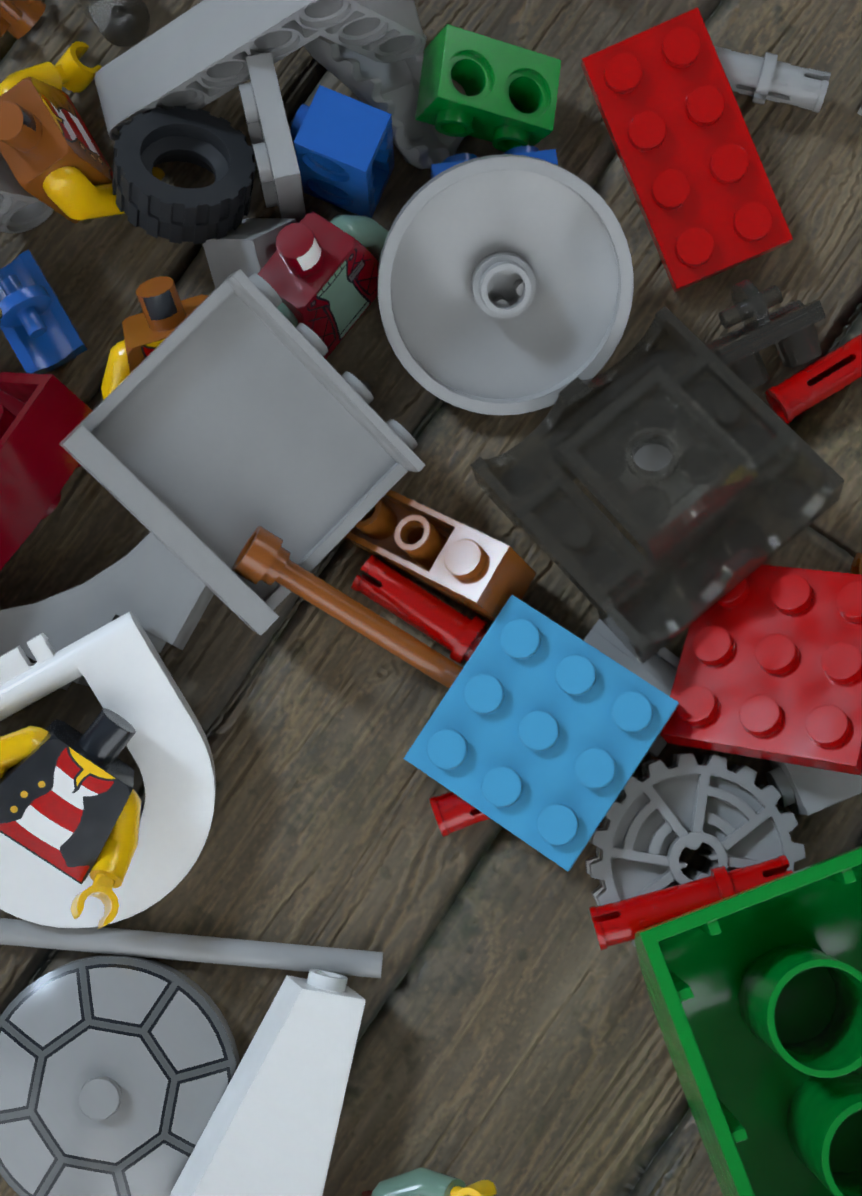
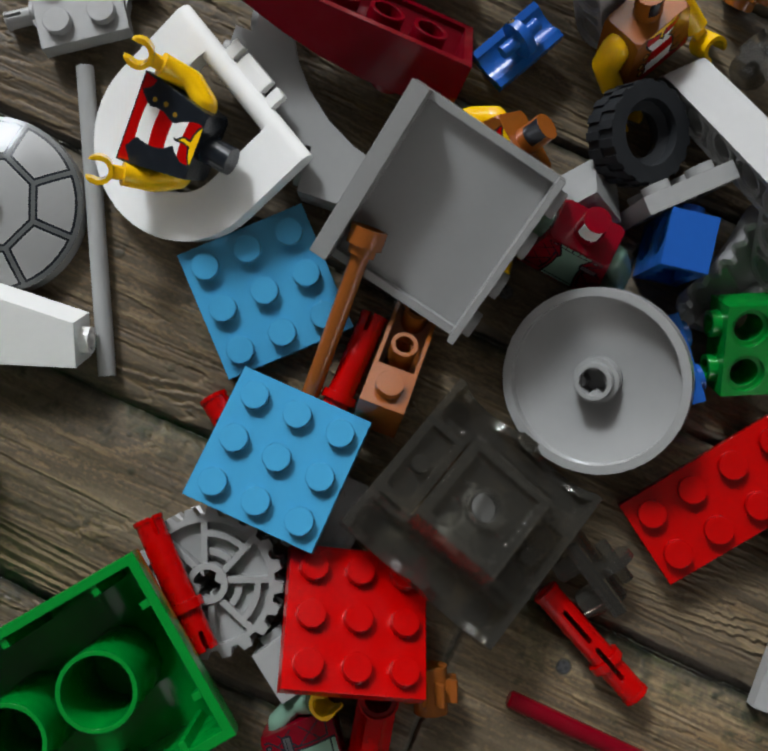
camera: 80 degrees right, 5 degrees up
(300, 721) = (262, 290): none -> dark azure plate

